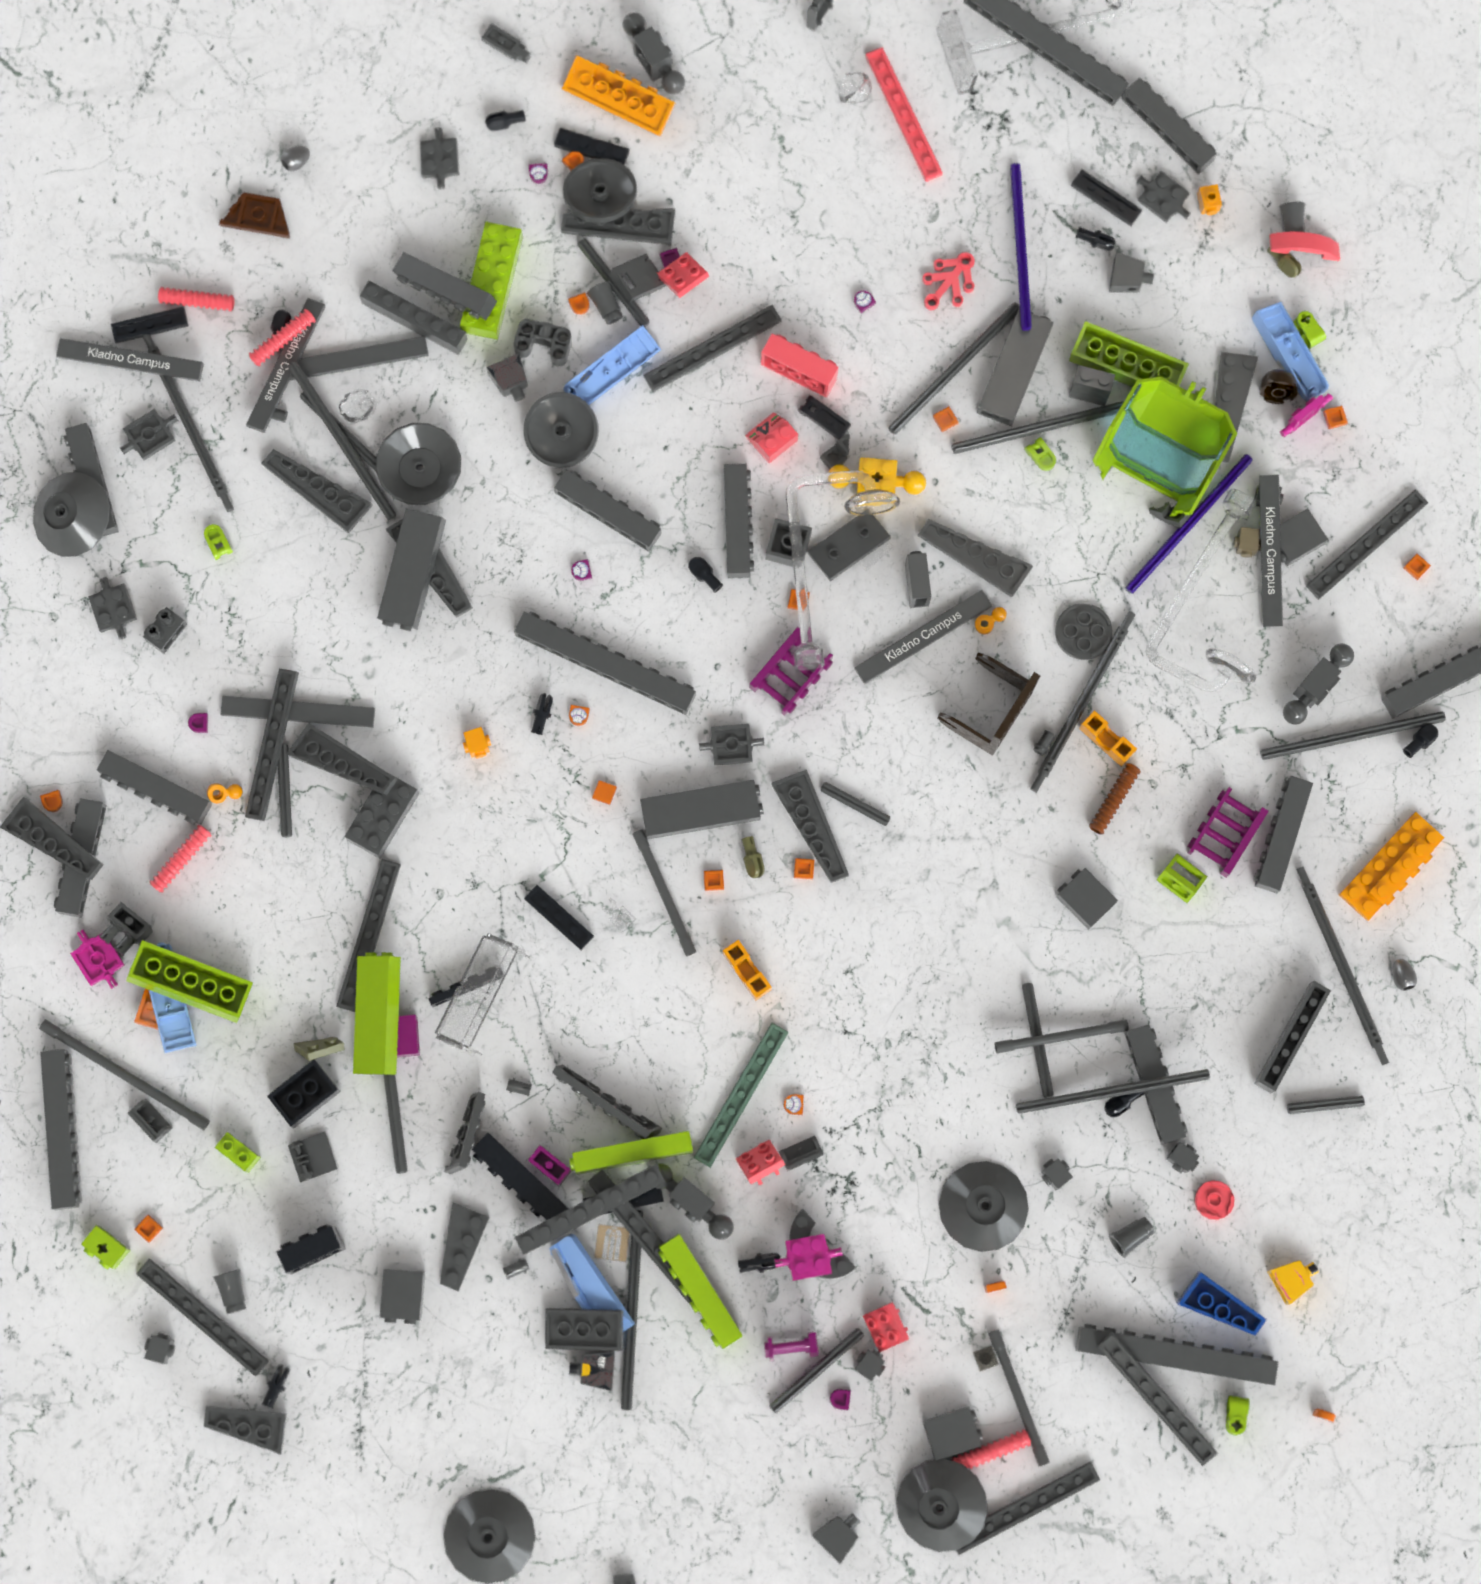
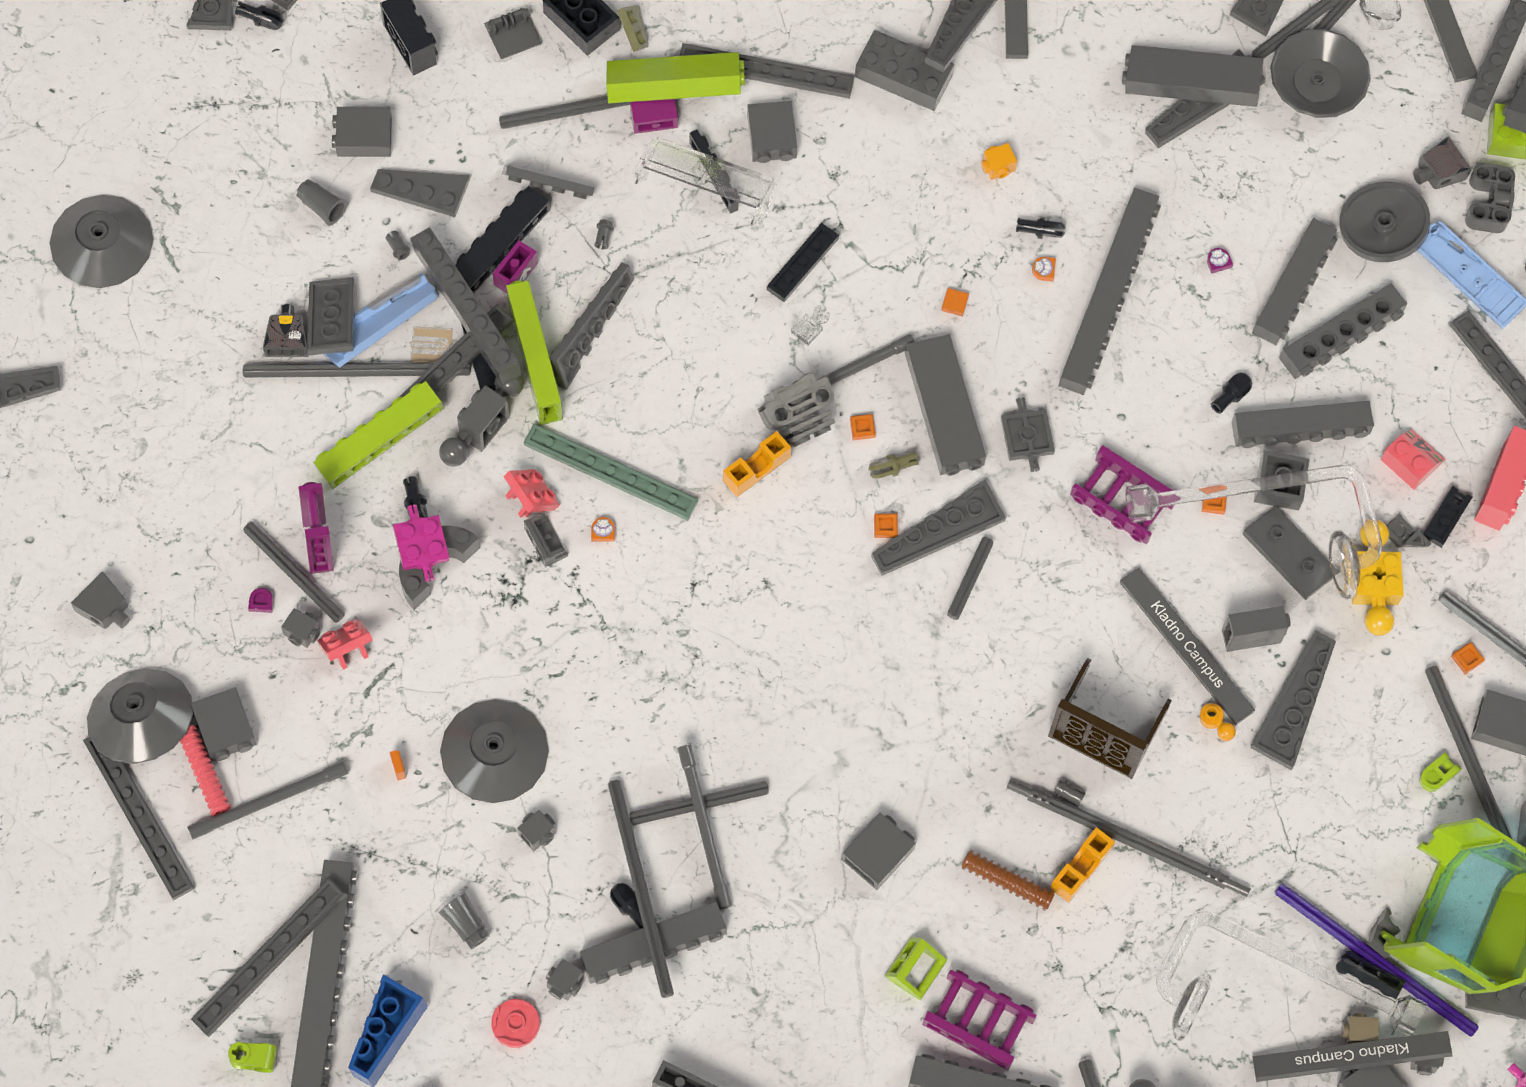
camera: 85 degrees right, 10 degrees down
(432, 934) = (772, 131): none -> dark grey brick
(469, 1335) = (322, 202): none -> dark grey plant
(636, 434) = (1385, 299): none -> dark grey brick
(703, 930) = (799, 408): none -> piece
(985, 1358) = (312, 758): clear smoke plate -> none
(1083, 631) = (1218, 835): dark grey tile -> none
(1204, 528) = (1370, 974): none -> black plate

